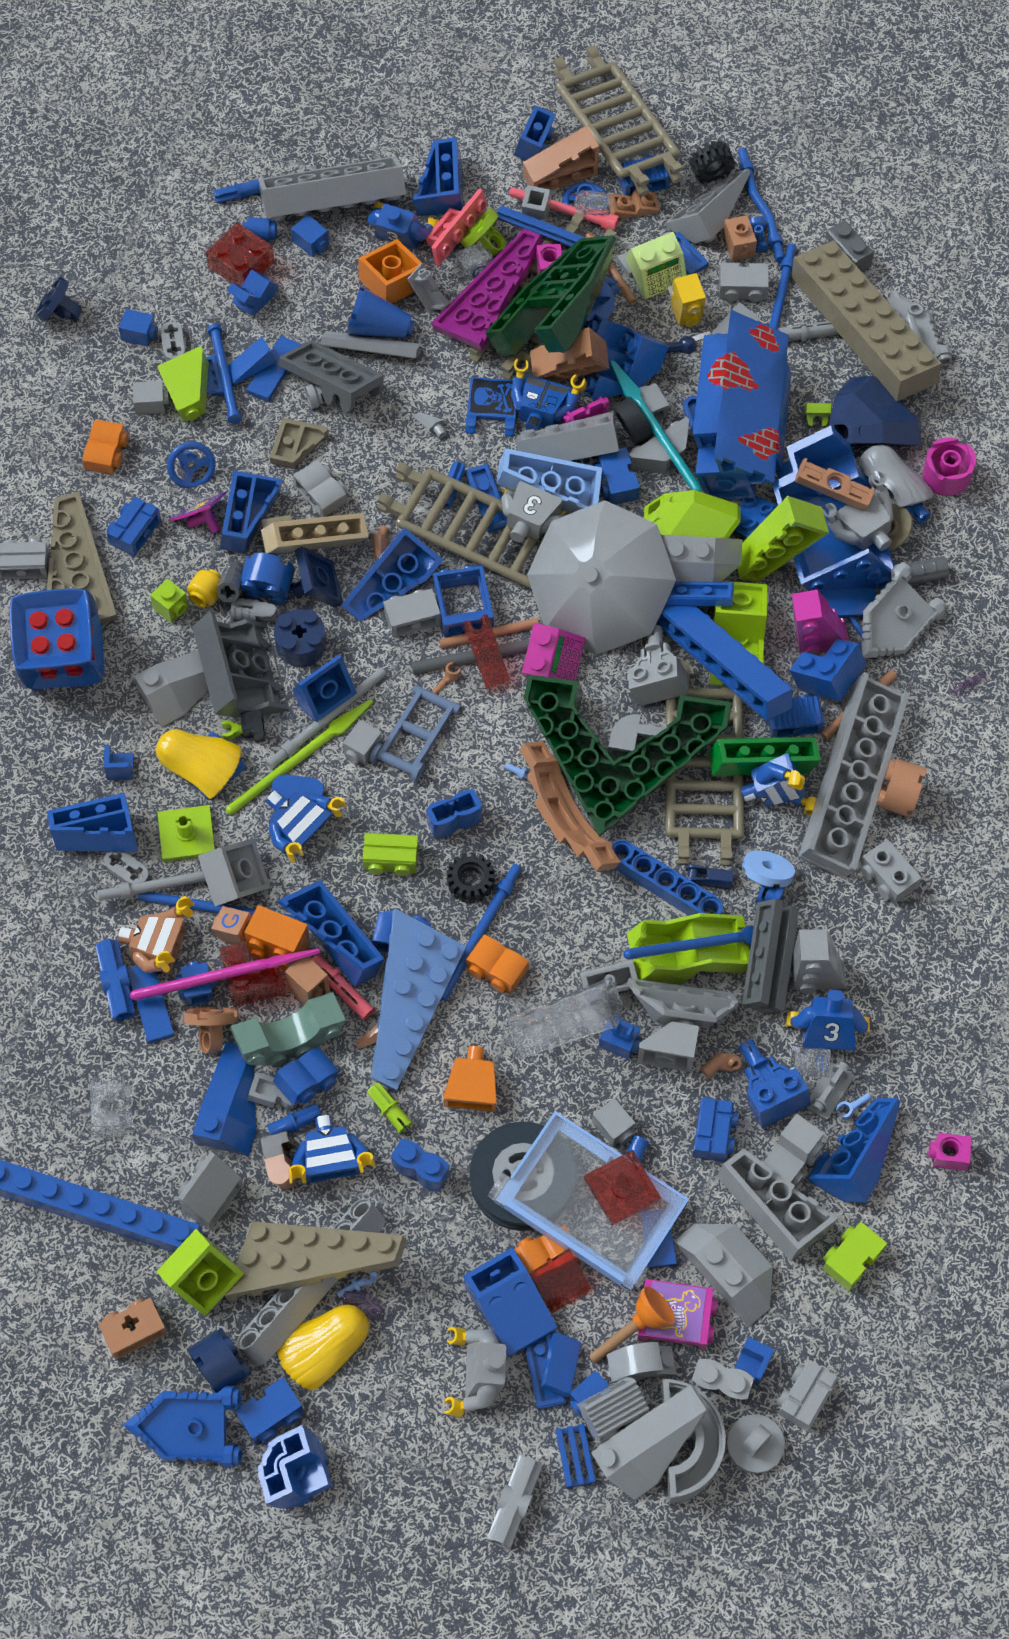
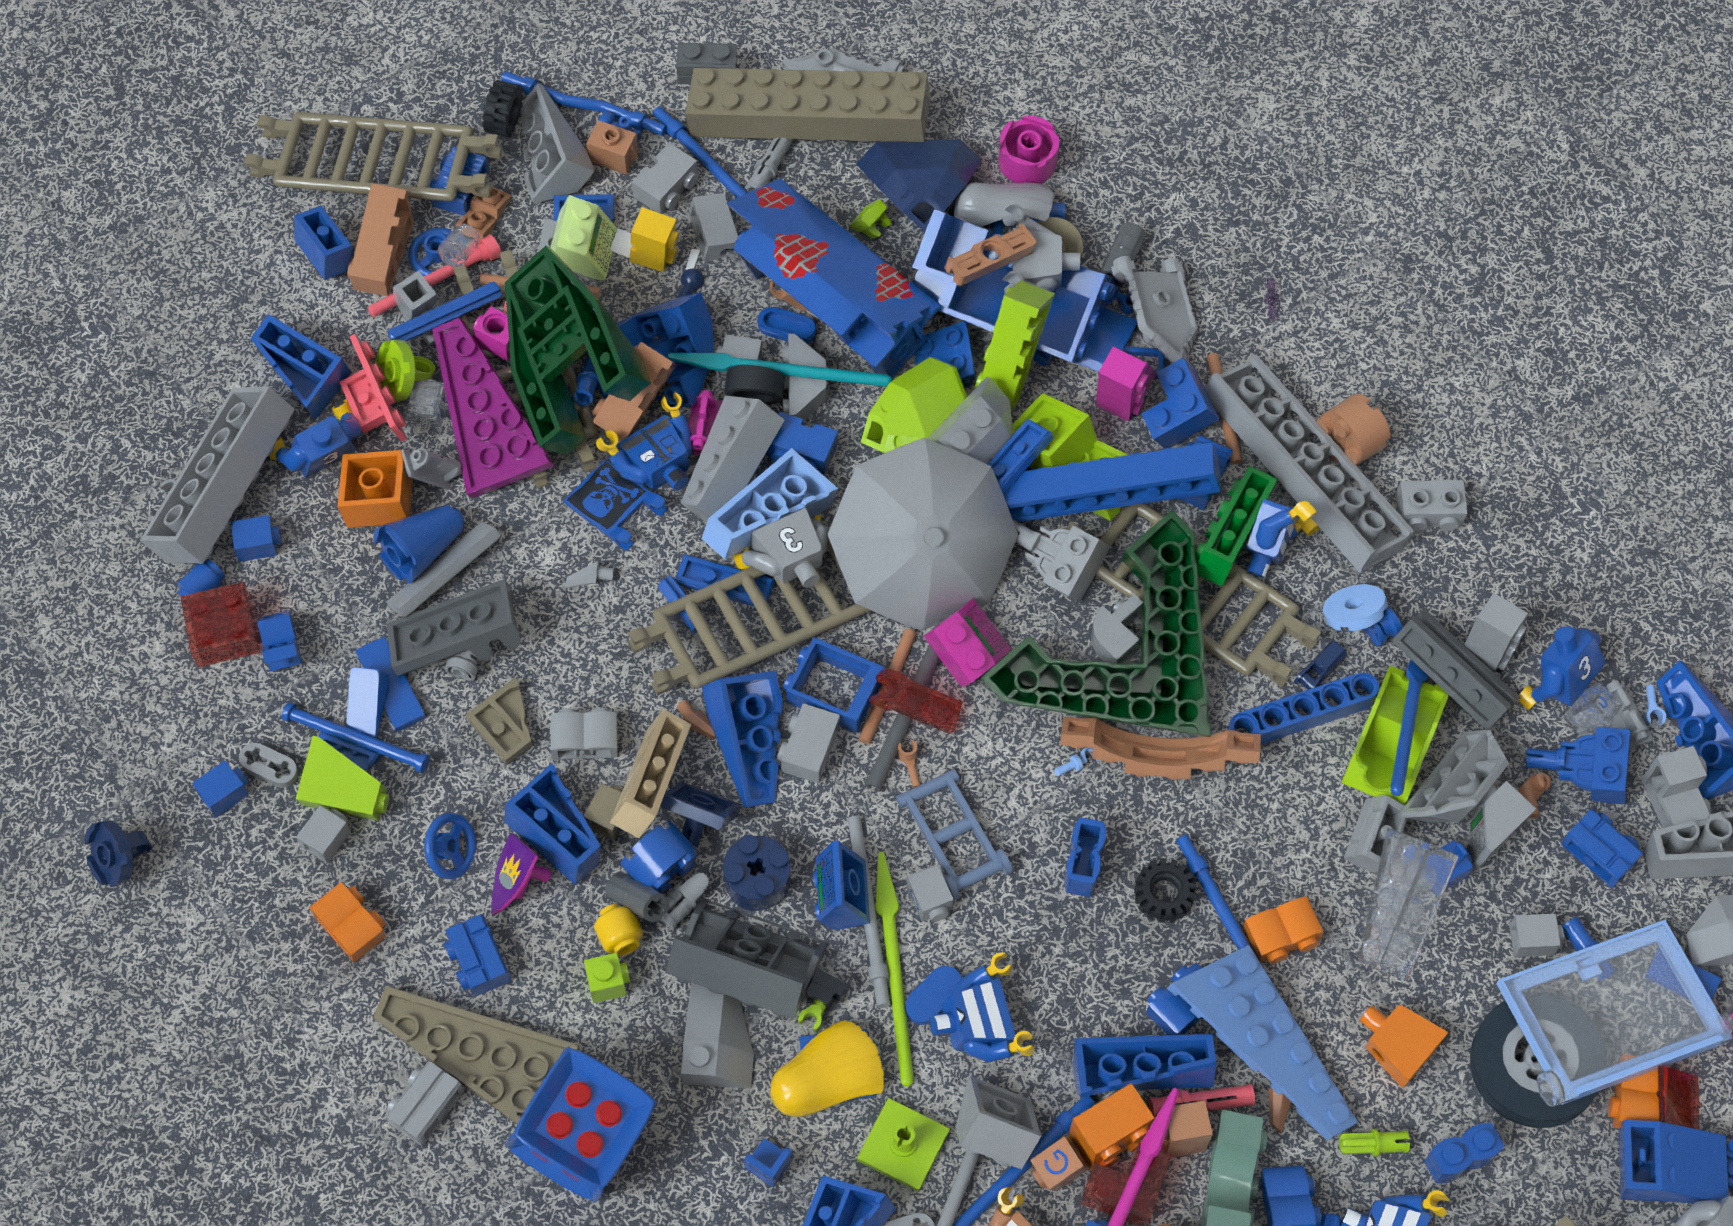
camera: 55 degrees left, 0 degrees up
(237, 191) = (127, 573): blue axle -> none
(390, 853) = (1081, 950): lime brick -> none
(622, 1188) = (1622, 972): clear red tile -> none

